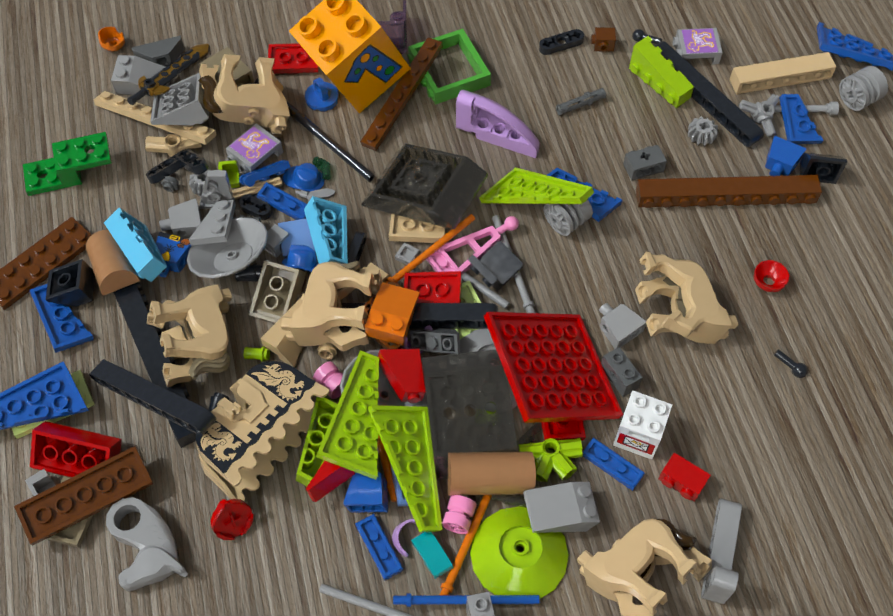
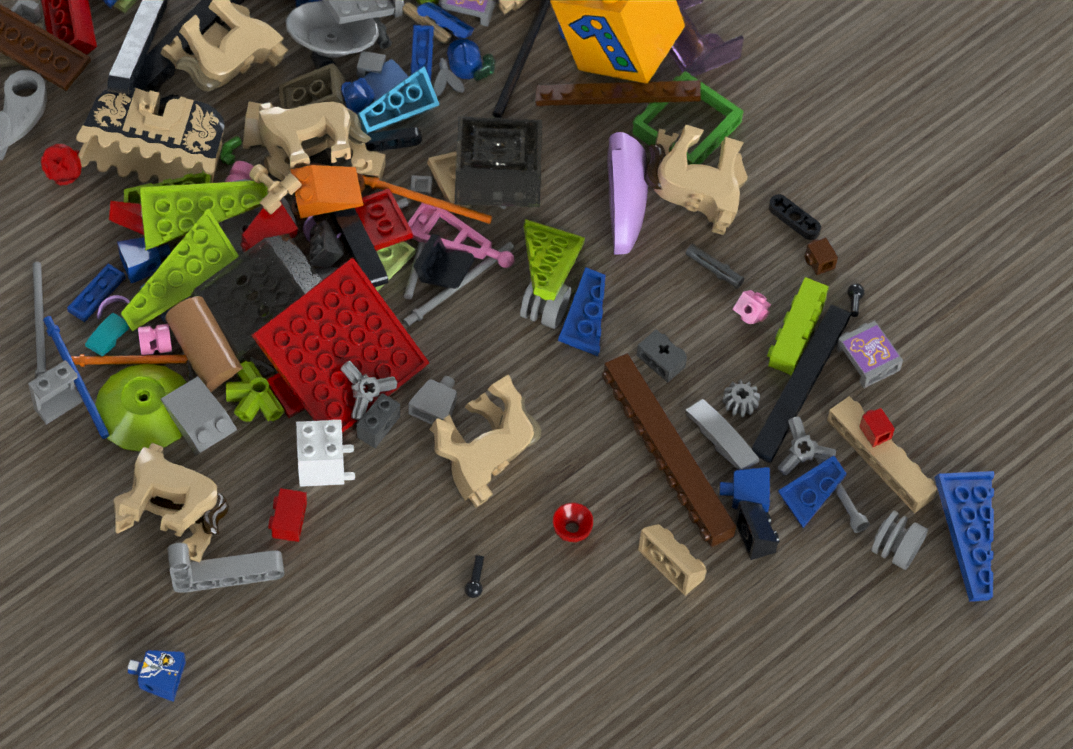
camera: 60 degrees right, 0 degrees up
(255, 207) = (399, 33): black beam -> none
(256, 353) = (238, 109): lime pin -> none
(383, 344) = (276, 189): none -> tan bar
(524, 72) = (697, 185): none -> tan piece
(596, 365) = (374, 386): none -> light grey bush
(613, 464) = (275, 452): blue tile -> none
(630, 92) = (752, 307): none -> bright pink brick
(732, 153) = (723, 435): none -> light grey slope
(771, 60) = (876, 427): none -> red brick
(827, 226) = (671, 558): none -> tan slope

